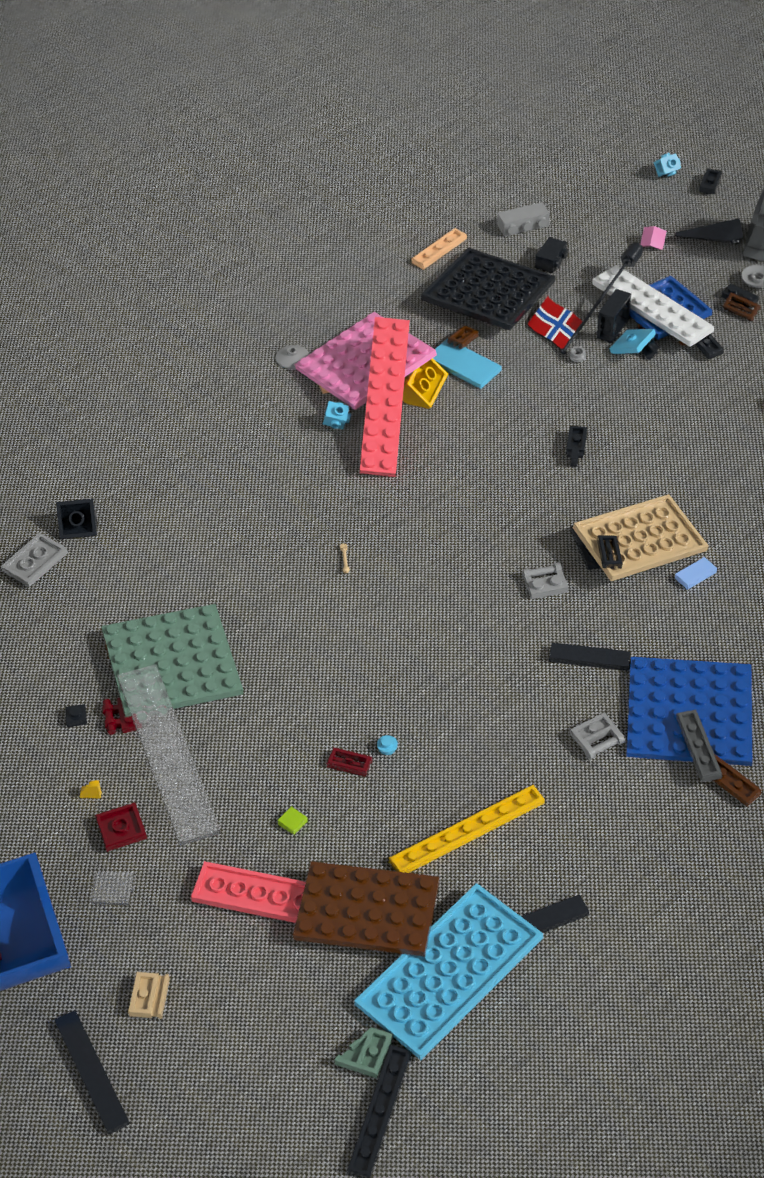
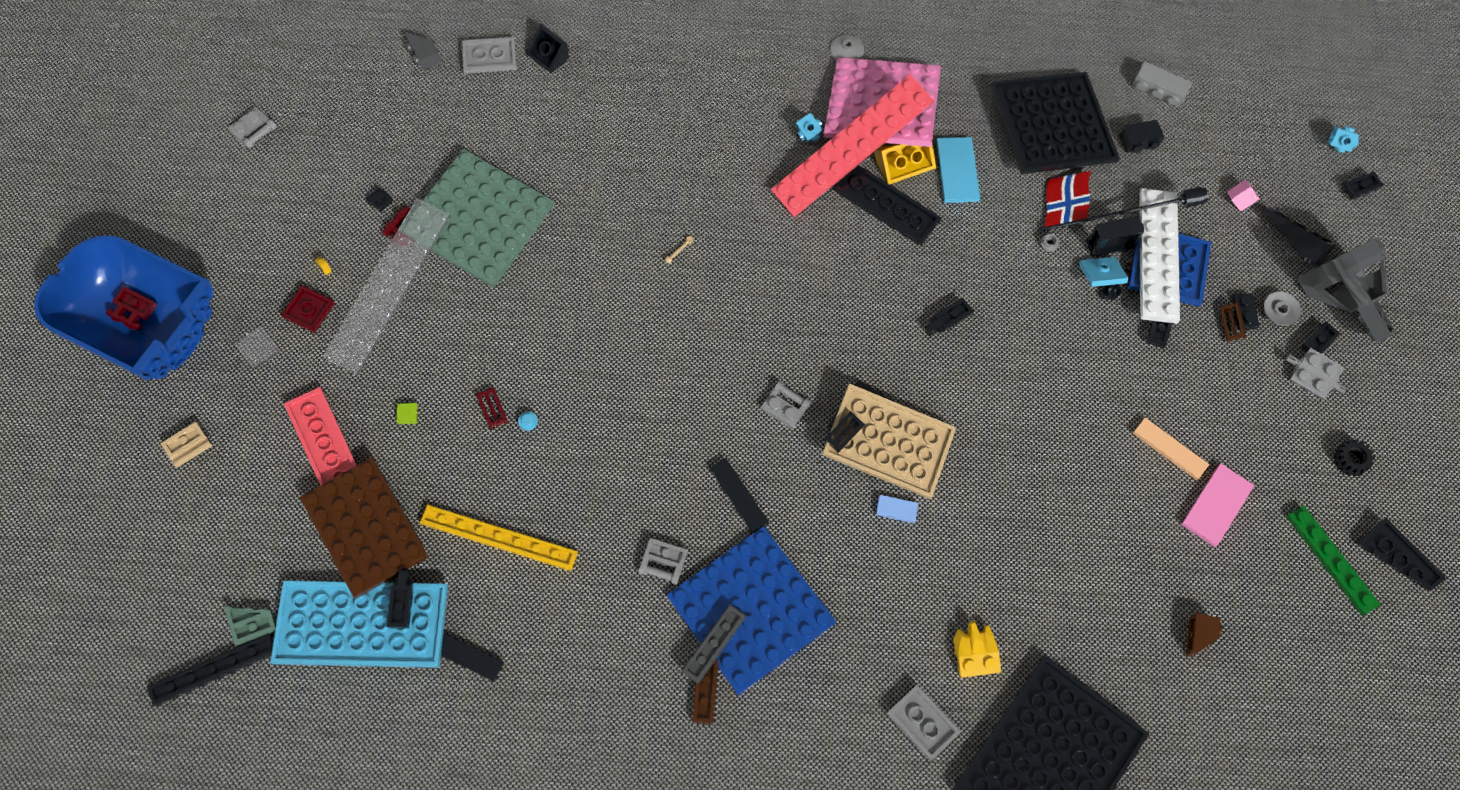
camera: 40 degrees right, 20 degrees up
(92, 1072) = (102, 460): black tile -> none
(439, 248) = (1067, 52): light nougat tile -> none
(449, 416) = (888, 204): none -> black plate
(463, 920) = (400, 602): none -> black hinge
(465, 338) = (984, 149): reddish brown tile -> none

